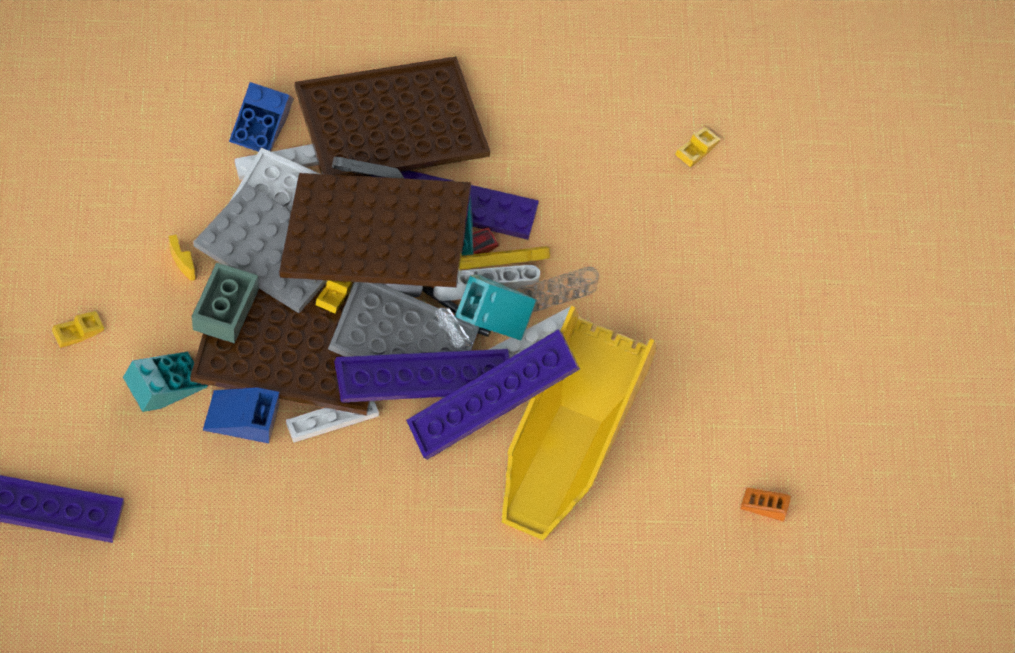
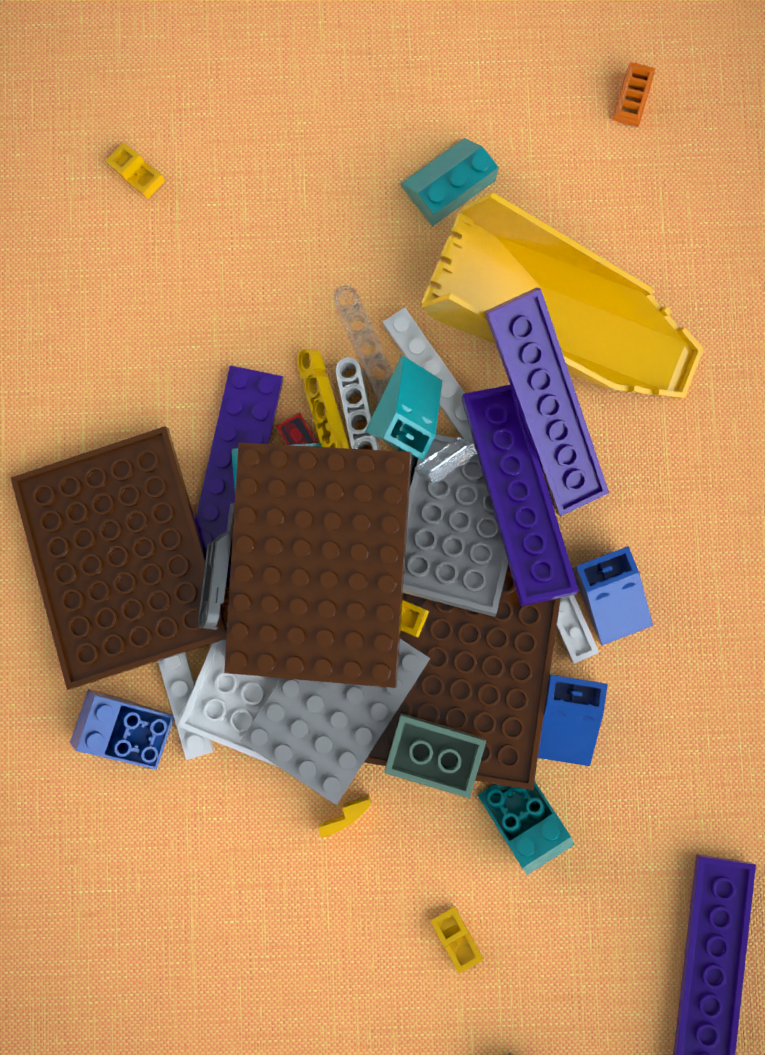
camera: 85 degrees left, 25 degrees up
(339, 451) = (613, 595): none -> slope
(688, 360) = (451, 180): none -> teal slope

